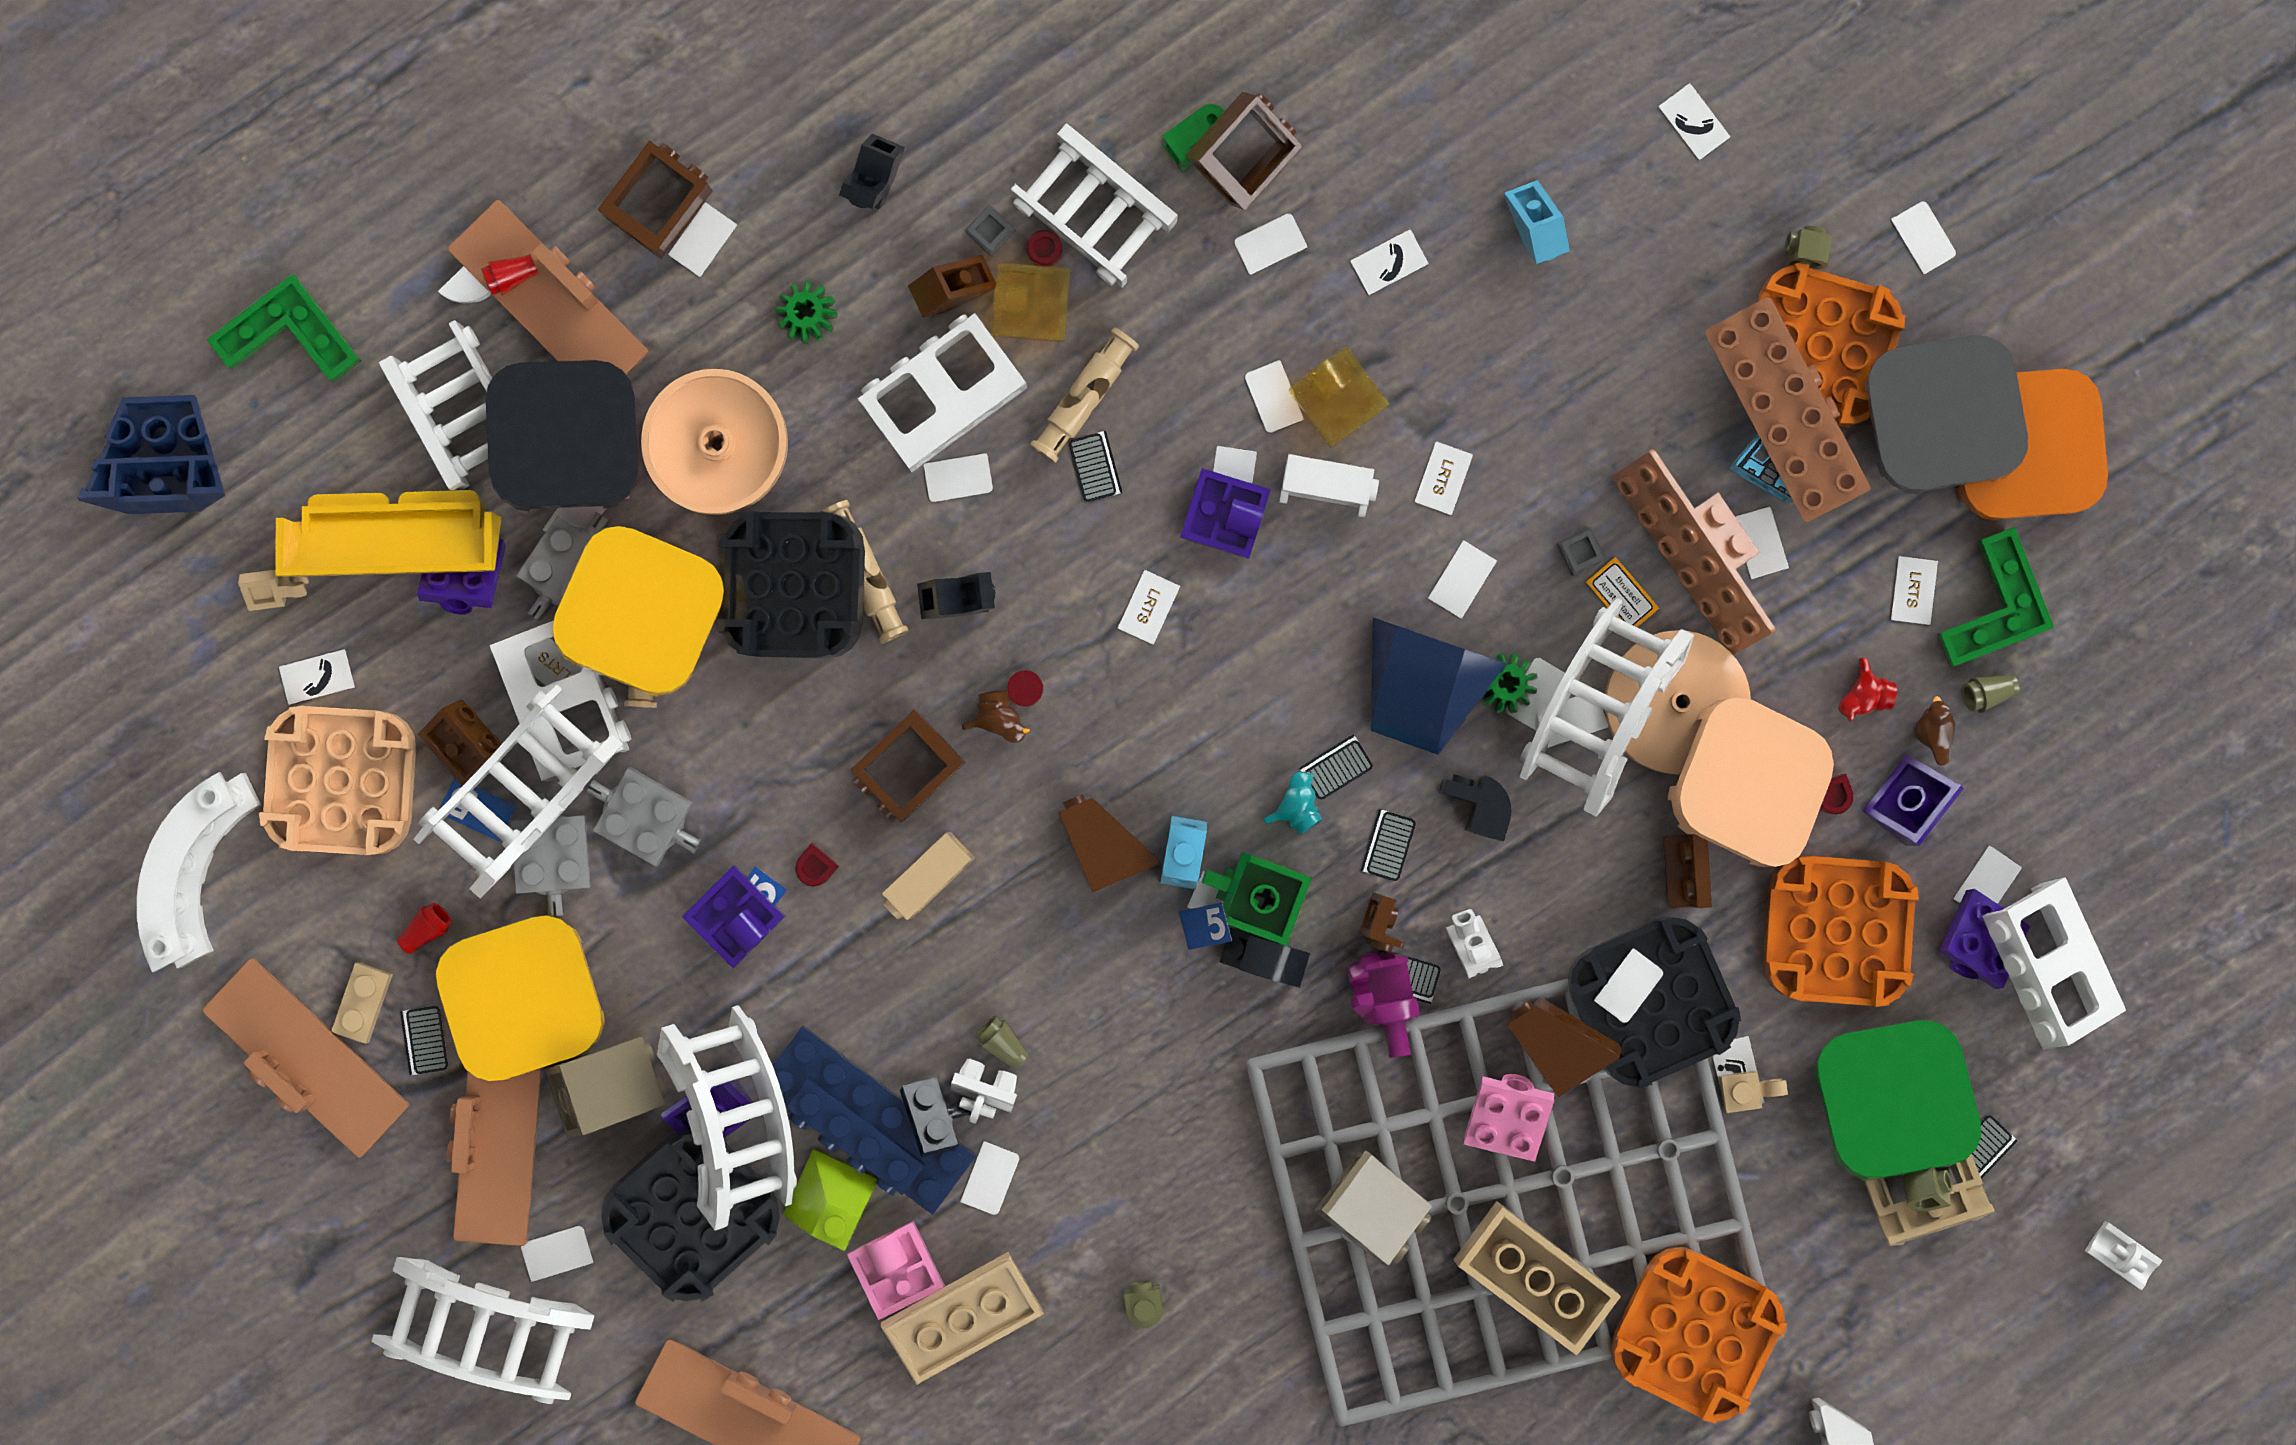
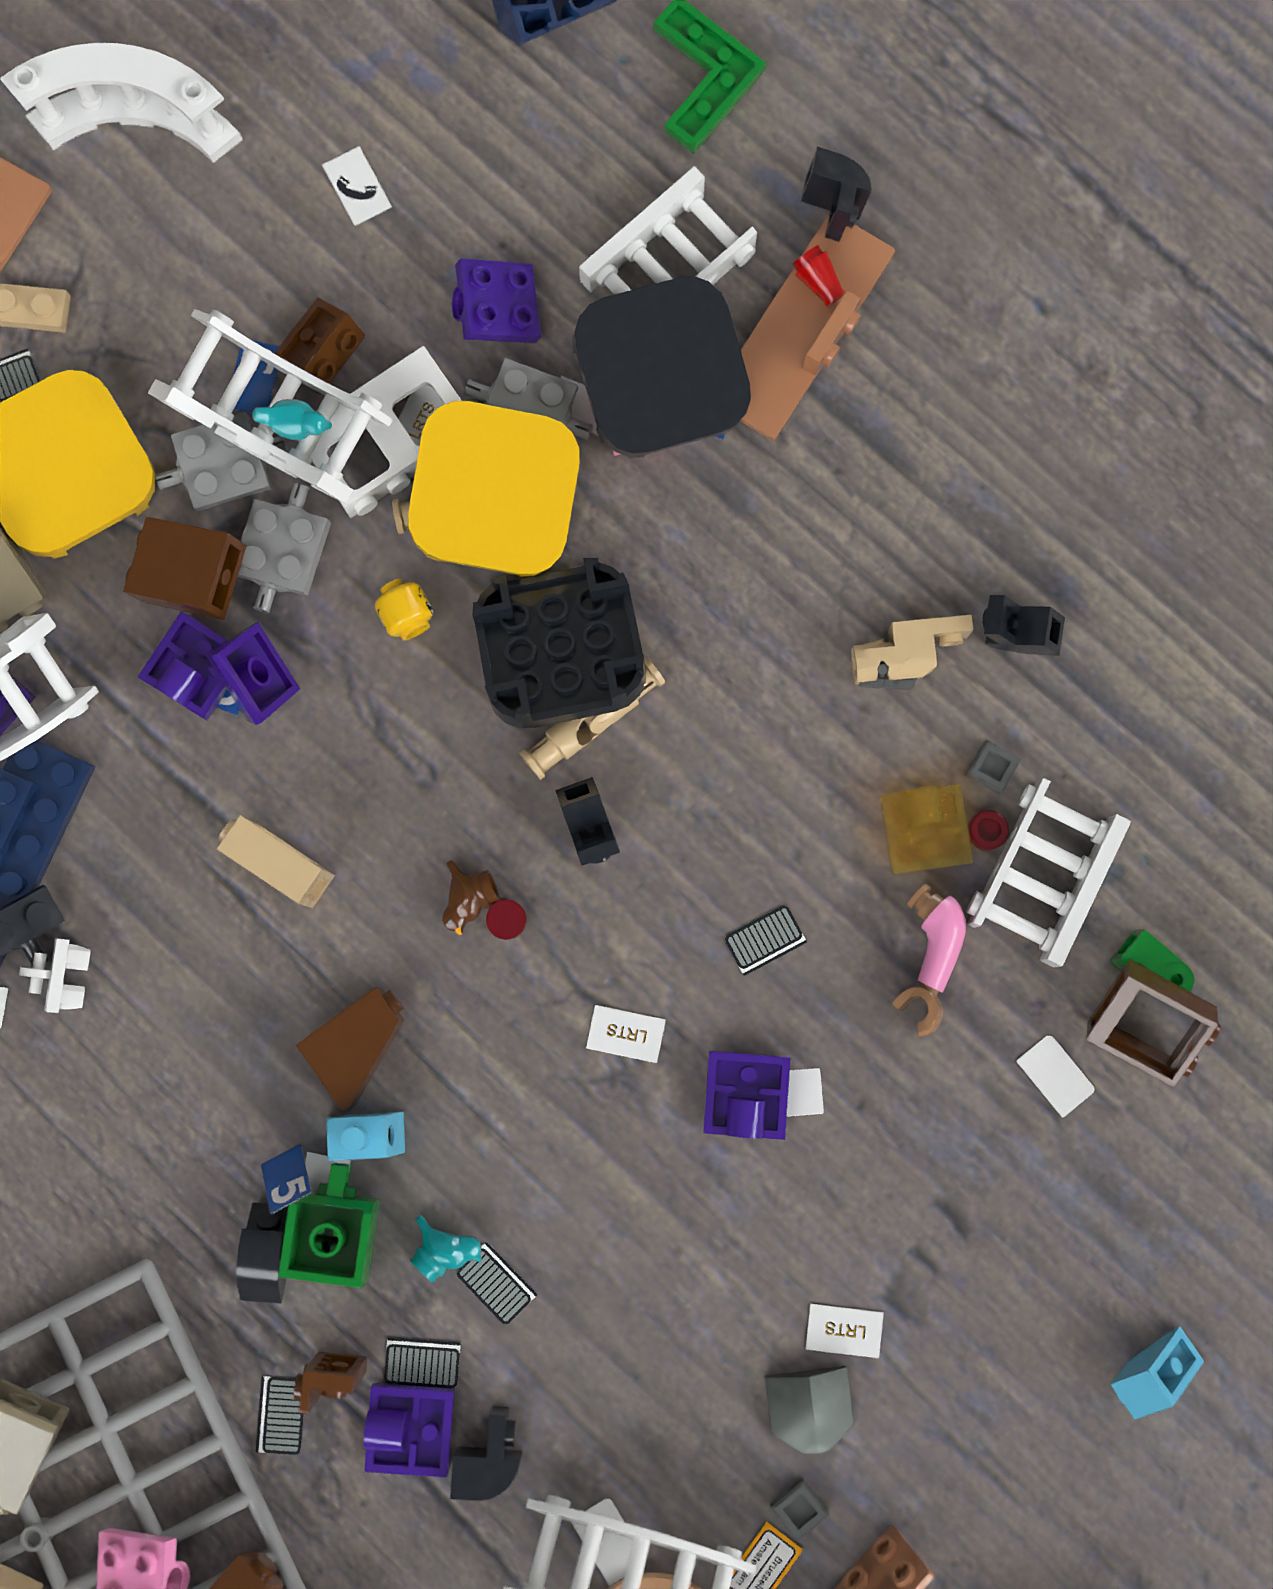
camera: 85 degrees right, 5 degrees down
(267, 590) = (433, 113): tan plate -> none
(338, 780) = (252, 231): light nougat tile -> none
(374, 537) = (512, 207): yellow slope -> none
(425, 927) = (119, 353): red cone -> none
(426, 237) = (837, 186): none -> black brick
(464, 288) = (793, 237): white tile -> none
(535, 773) = (292, 419): none -> teal animal
(643, 904) = (184, 568): none -> reddish brown brick
(681, 217) = (923, 438): reddish brown window -> none
(681, 434) = (700, 493): light nougat dish -> none
(702, 239) = (906, 468): white sticker -> none
(726, 717) = (403, 609): none -> yellow head
(755, 863) = (253, 673): none -> dark purple slope
(805, 300) = (842, 597): green gear -> none
(815, 866) = (266, 740): dark red tile -> none
(872, 280) = (908, 653): none -> tan plate
(932, 738) = (425, 835): reddish brown window -> none
(951, 285) = (923, 739): reddish brown slope -> none
(955, 409) = (789, 774): white window -> none
(958, 477) = (718, 795): white sticker -> none
(1001, 1042) = (116, 981): olive cone -> none
(1080, 400) = (832, 907): tan piece -> none
(1124, 307) = (945, 934): none -> bright pink piece
(1271, 395) = (888, 1118): white sticker -> none
(1329, 482) = (808, 1203): white brick -> none
(1338, 397) = (905, 1192): clear yellow plate -> none
(1384, 996) = (246, 1401): magenta piece -> none
(1389, 262) = (1069, 1213): white sticker -> none
(1424, 686) = (605, 1365): dark blue wedge -> none
(1441, 866) = (409, 1430): none -> dark purple plate
(1462, 579) = (734, 1378): white sticker -> none
(1473, 943) = (327, 1490): white hips -> none
(1500, 522) = (810, 1408): none -> pearl dark grey slope
(1502, 695) = (627, 1474): green gear -> none
(1546, 684) = (631, 1492): white sticker -> none

